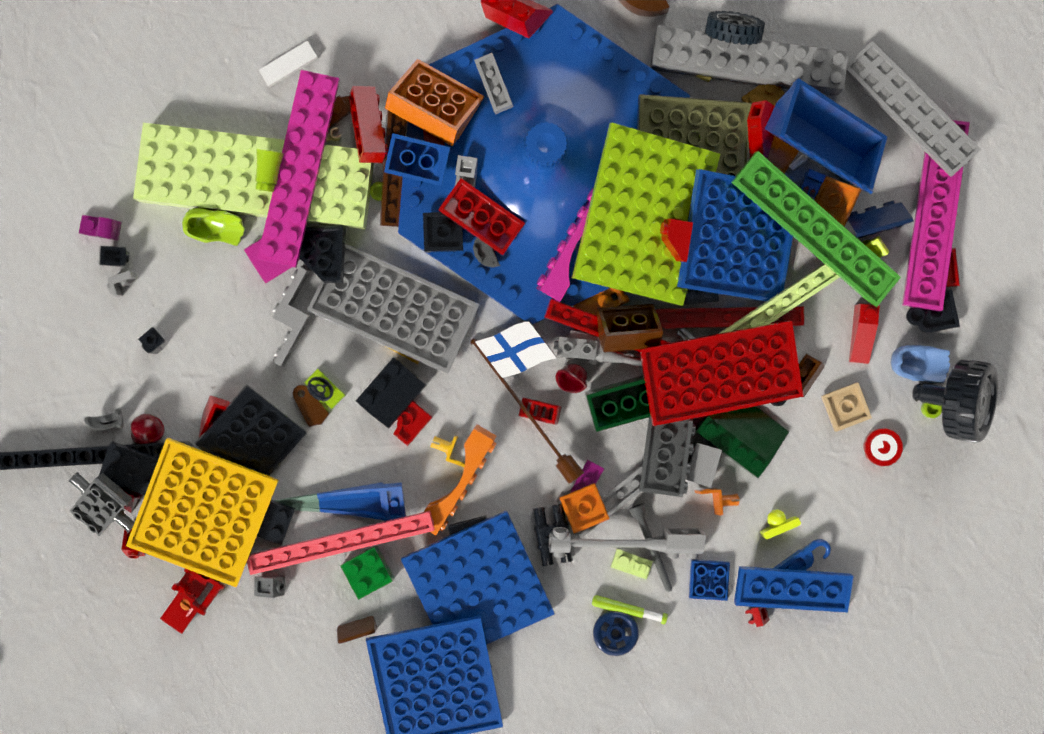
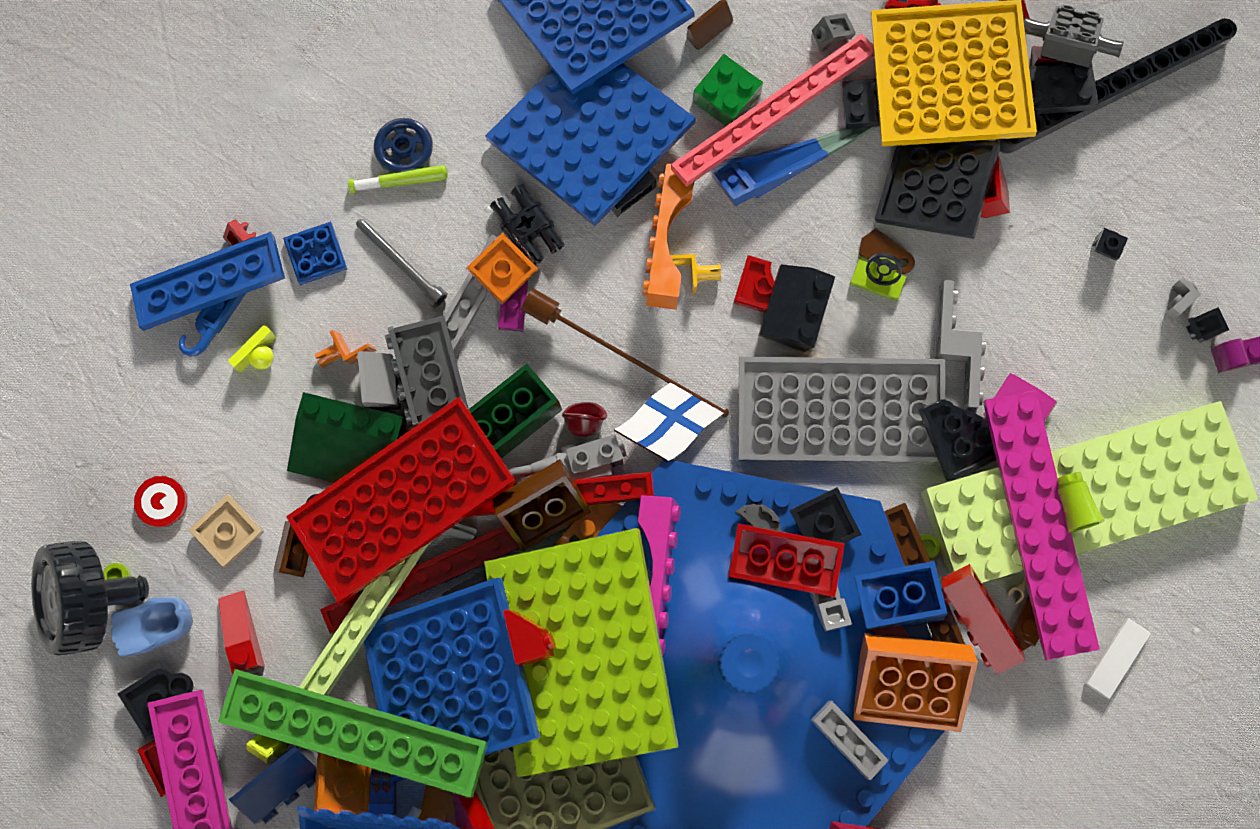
camera: 155 degrees right, 10 degrees down
(97, 422) = (1123, 127): dark grey helmet -> none
(146, 429) = (1063, 143): dark red helmet -> none
(213, 226) = (1108, 412): lime hair -> none
(556, 413) = (597, 374): red slope -> none
(631, 563) = (417, 232): yellowish green plate -> none
(673, 542) = (377, 275): light grey bar -> none

